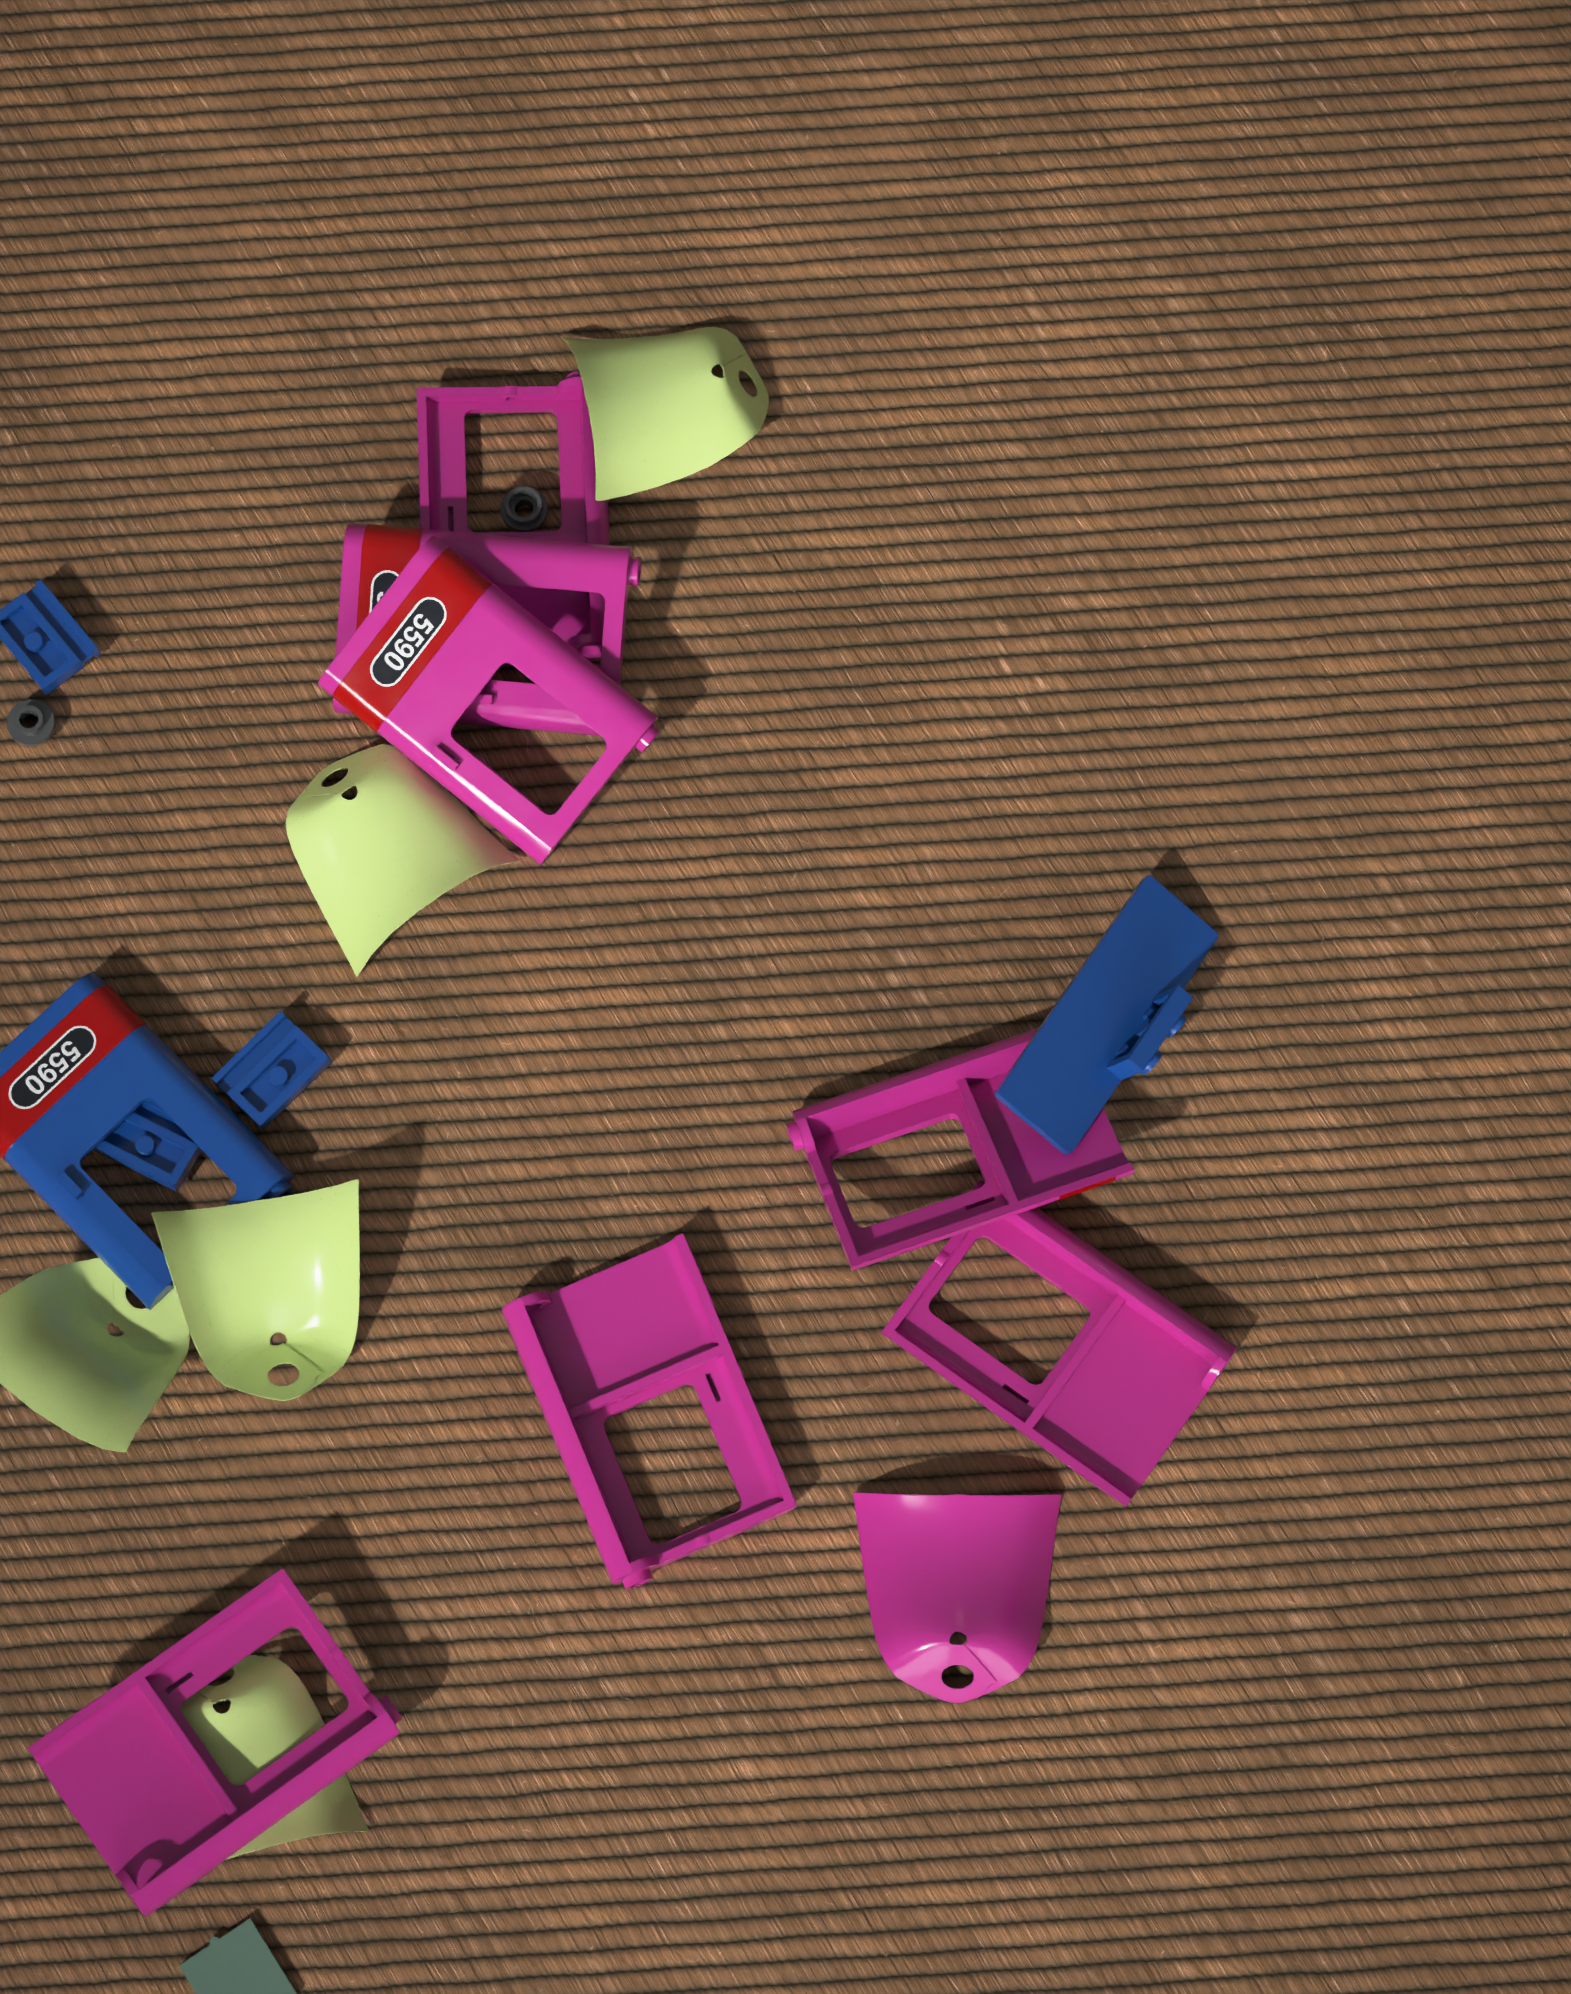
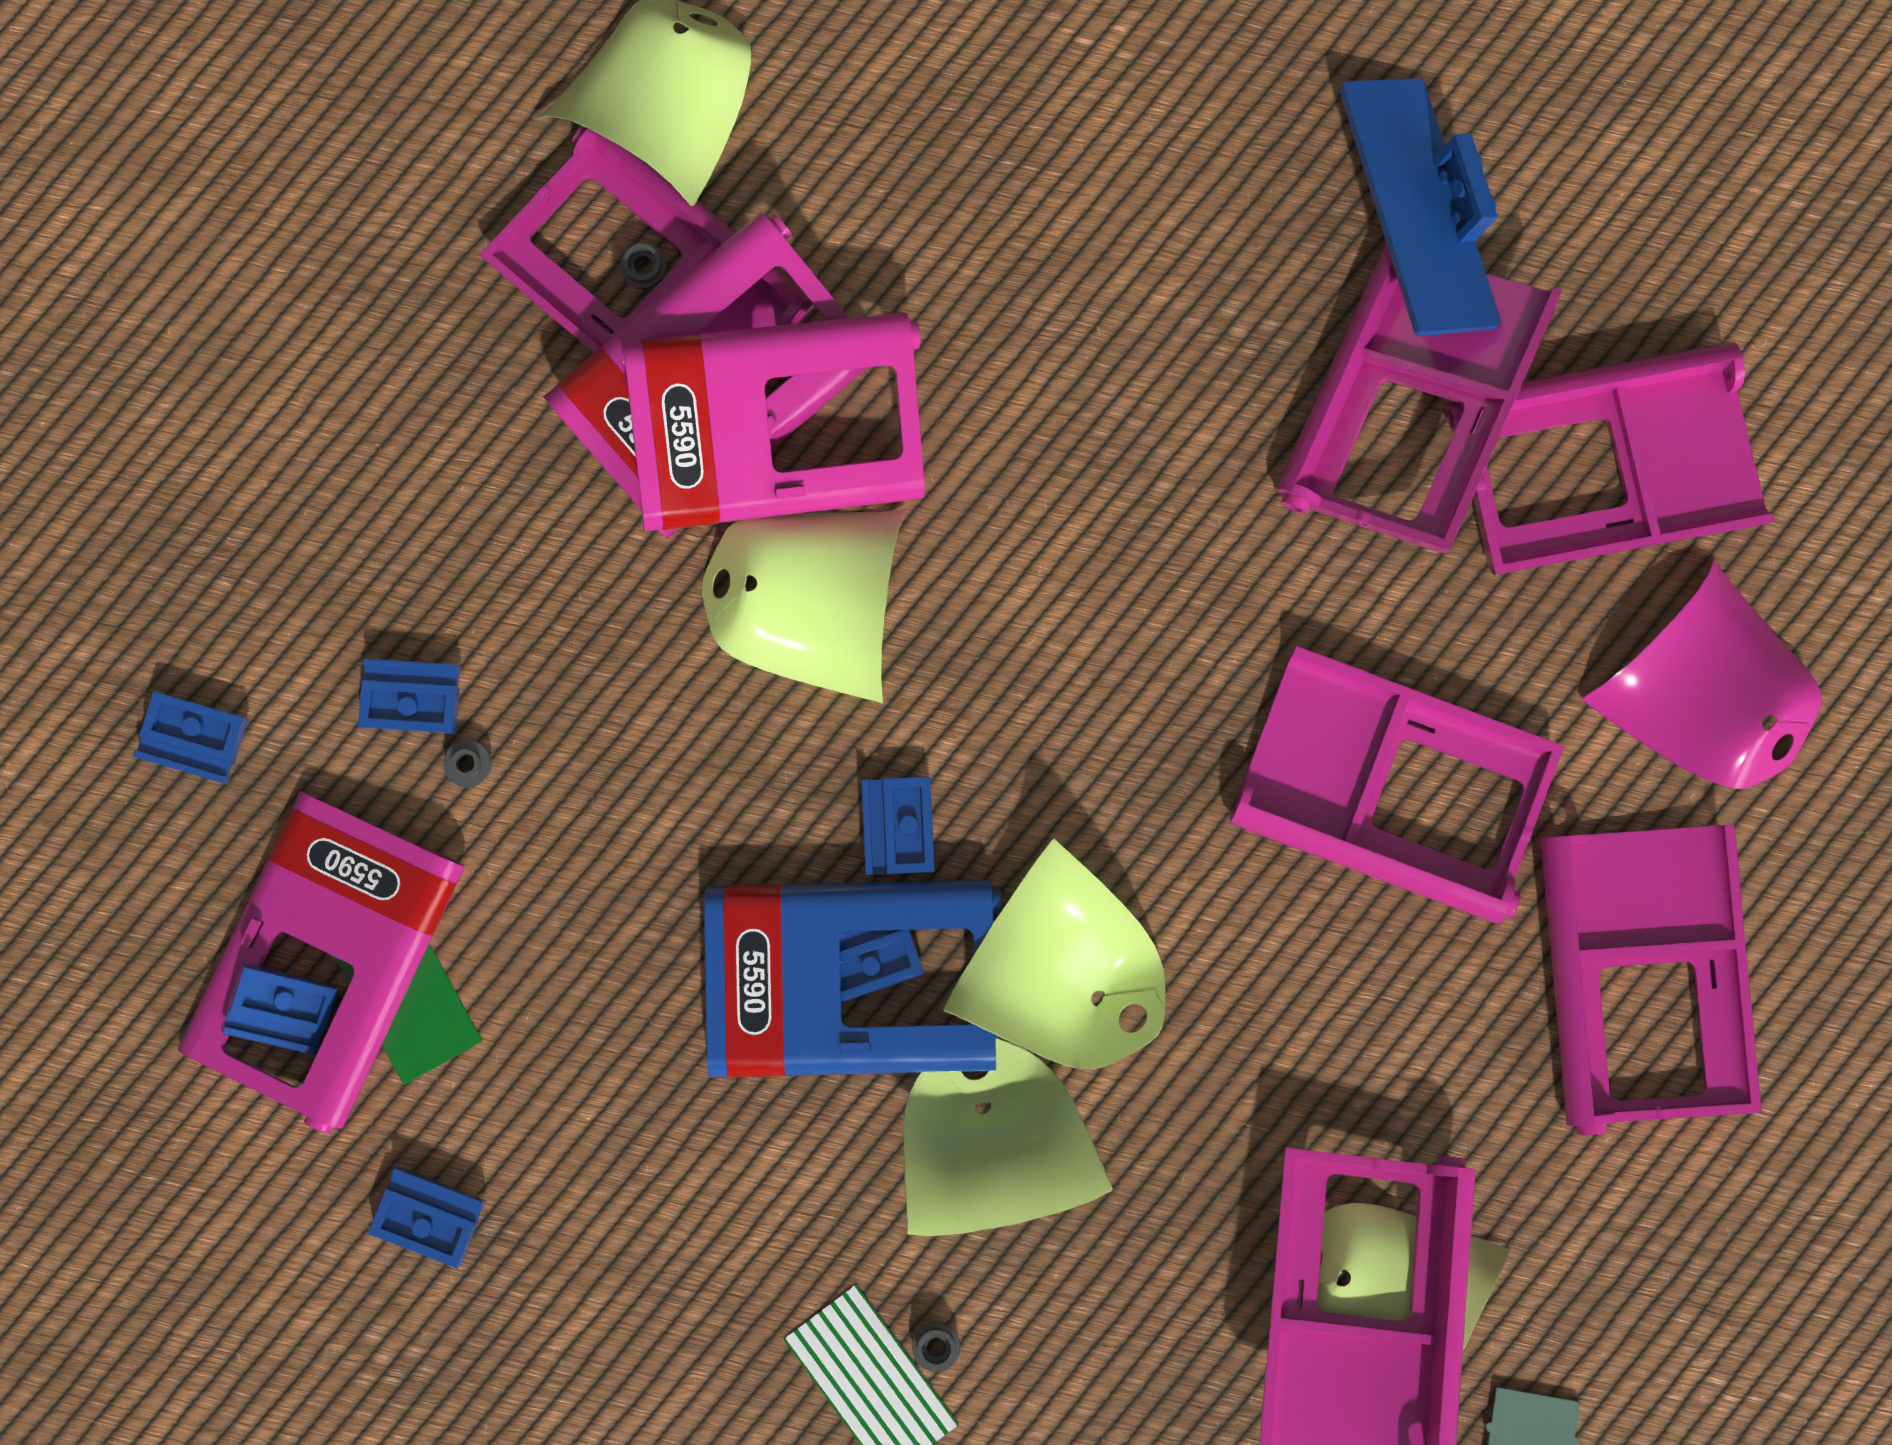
camera: 45 degrees left, 10 degrees up
(732, 1683) = (1643, 904): none -> dark pink piece

